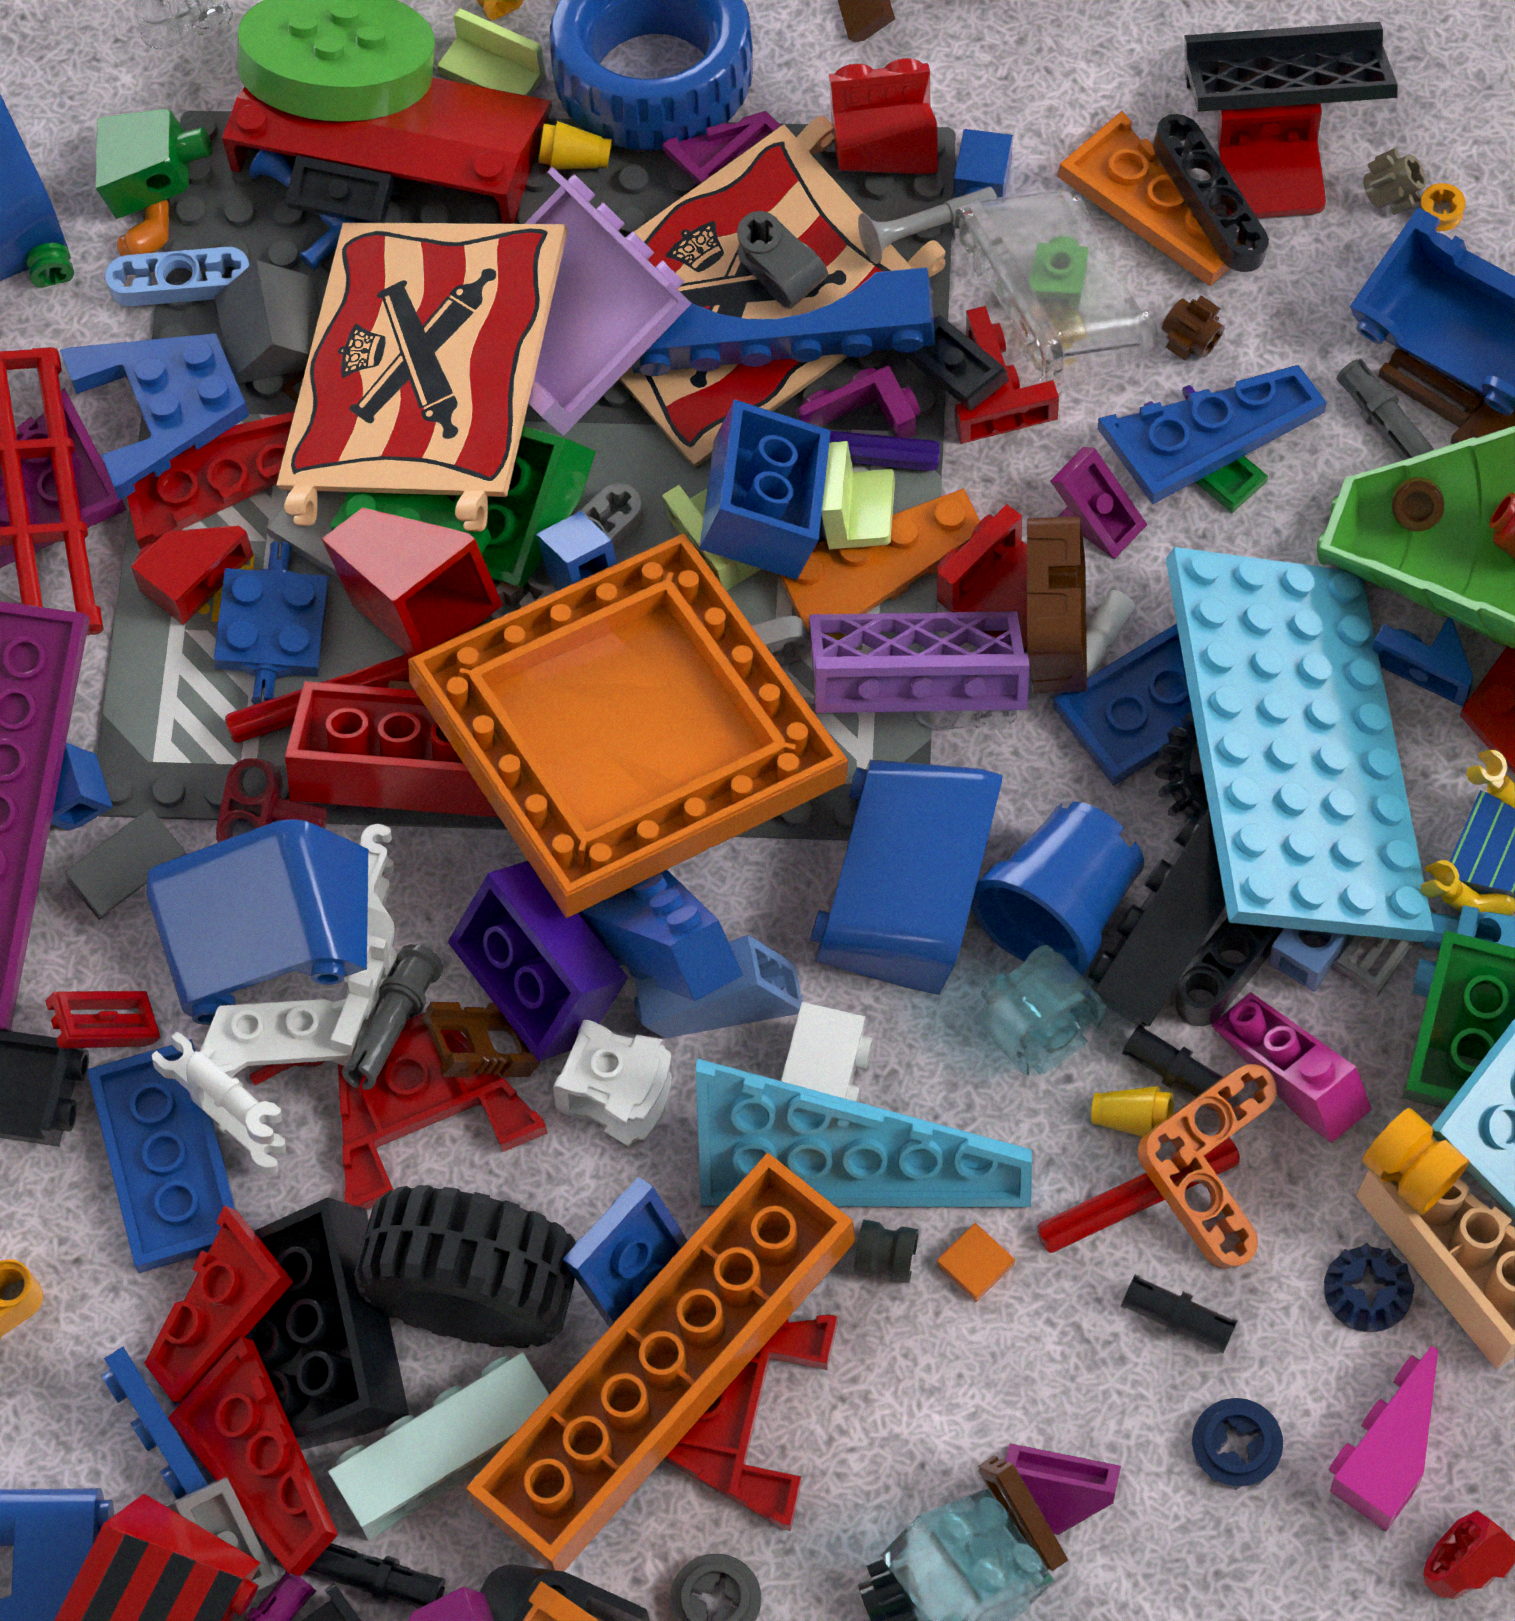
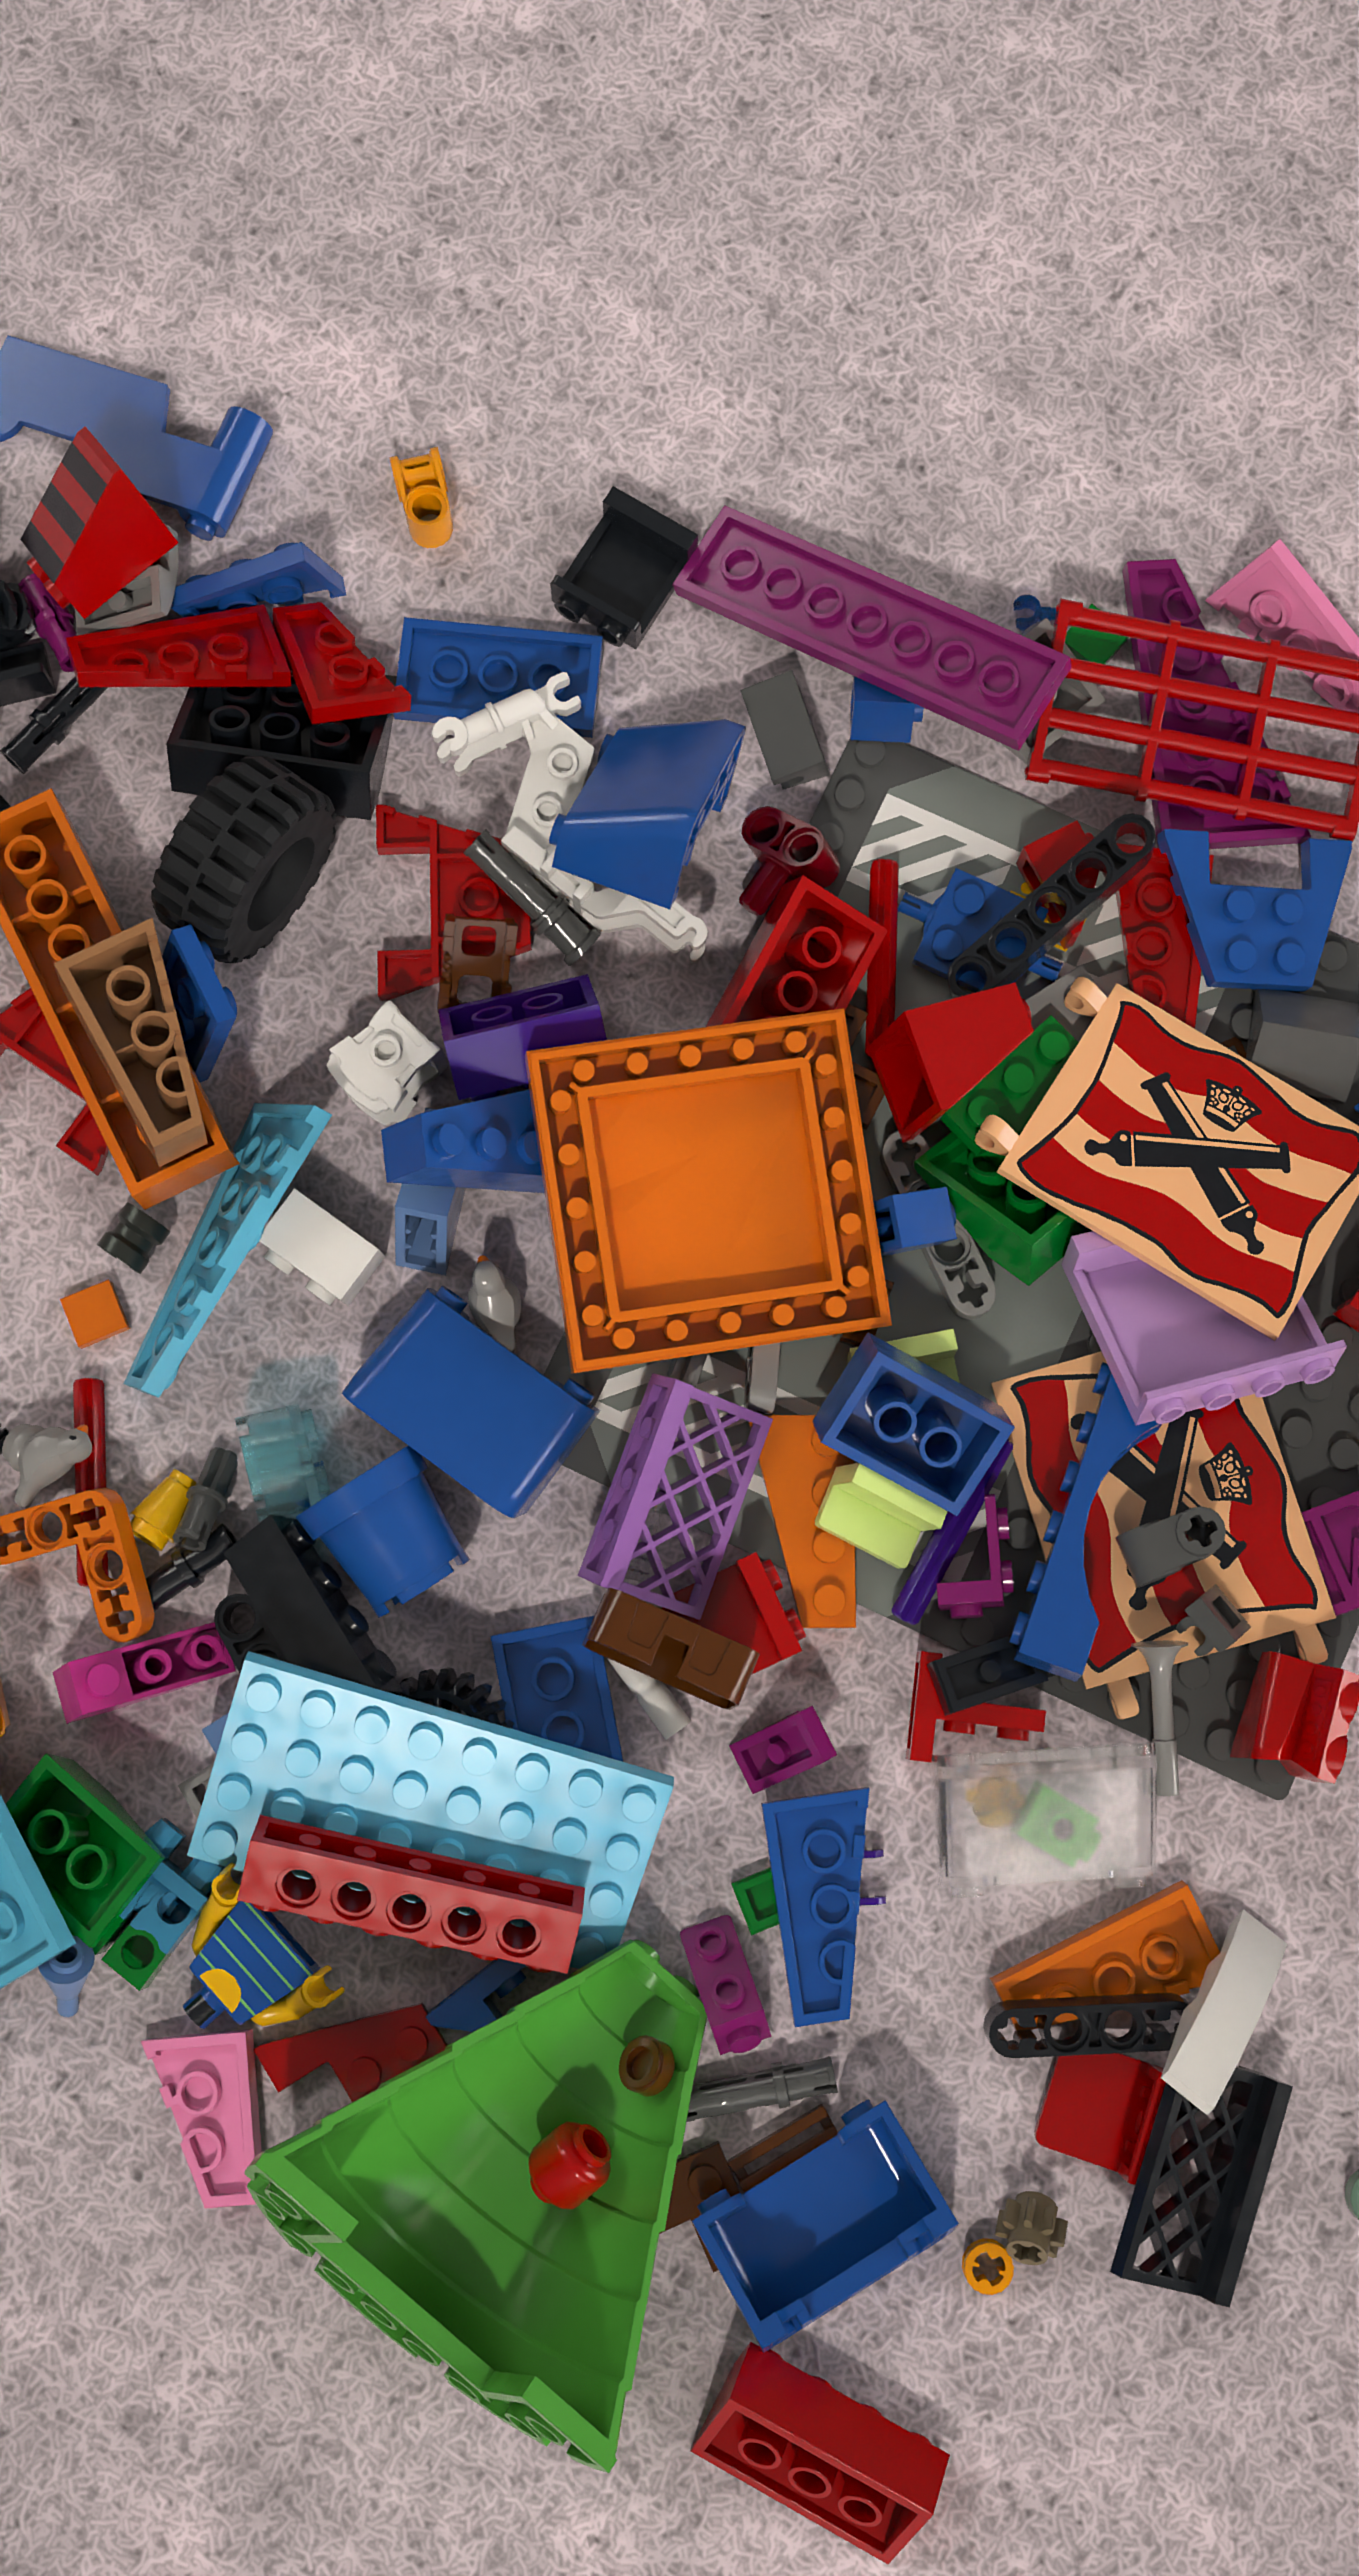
camera: 105 degrees right, 15 degrees up
(106, 1027) = (641, 618): red tile -> none
(224, 524) = (1064, 890): none -> black beam
(438, 1448) = (130, 801): light aqua brick -> none
(699, 1256) = (132, 1022): none -> medium nougat wedge
(806, 891) = (494, 1302): none -> light grey animal
(828, 203) = (1216, 1619): none -> dark grey tile
(983, 162) = (1215, 1804): blue brick -> none
(1106, 1071) = (206, 1500): none -> dark grey axle
(1133, 1233) = (43, 1456): none -> light grey animal
(1152, 87) = (1225, 2013): none -> white slope
(1193, 327) = (943, 1935): reddish brown gear -> none
(1317, 477) = (725, 1985): none -> magenta bracket
(1371, 720) = (394, 1871): none -> red brick

